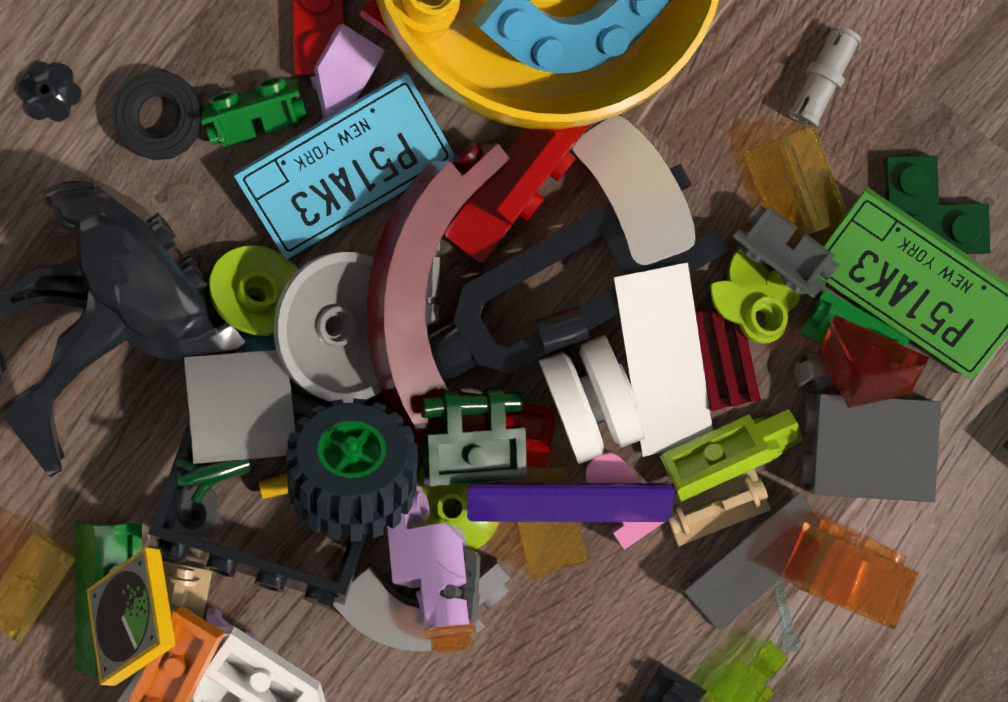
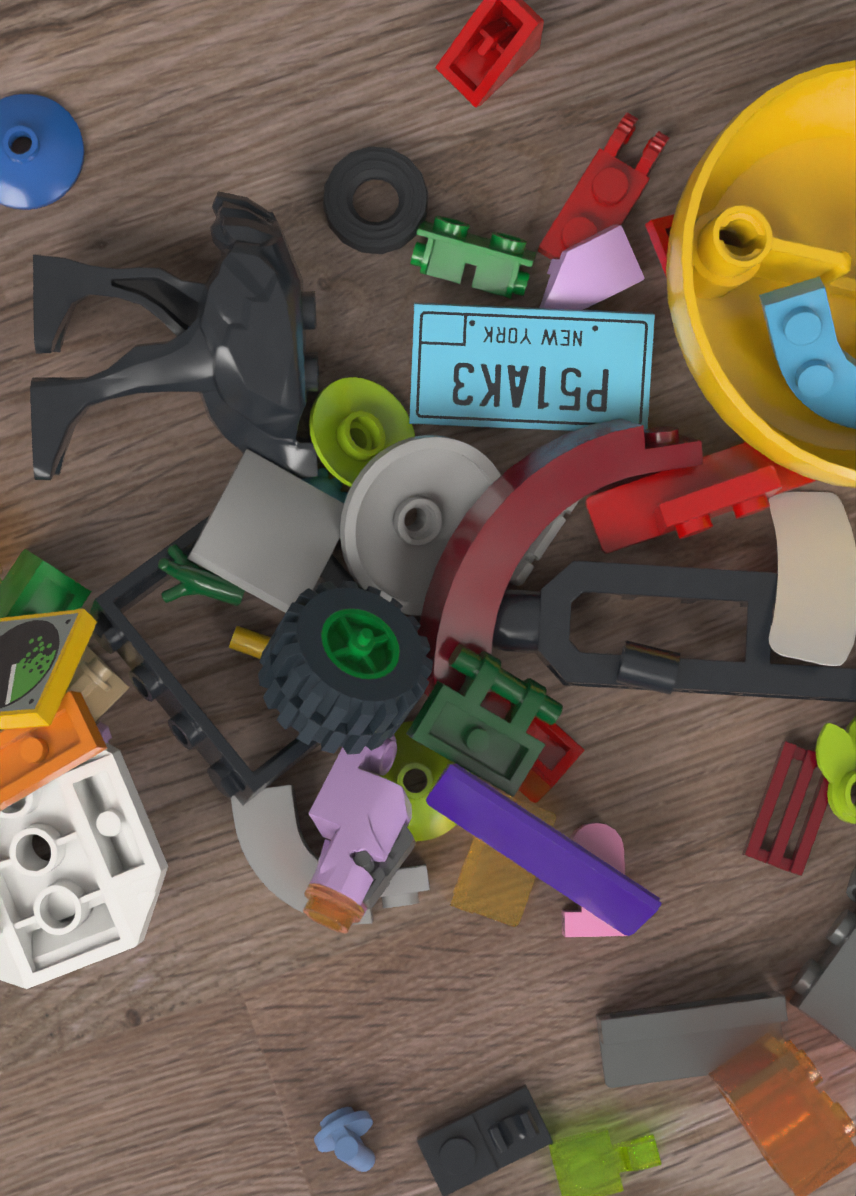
camera: 25 degrees right, 5 degrees down
(61, 96) = (283, 123): black plant -> none
(209, 516) = (167, 615): dark grey animal -> none
(597, 397) = (642, 760): white wheel -> none
(664, 356) = (730, 769): white sticker -> none
(718, 507) = (689, 956): tan hinge -> none
(729, 452) = (736, 908): lime hinge -> none
(791, 641) = (674, 1149): clear light blue hinge -> none

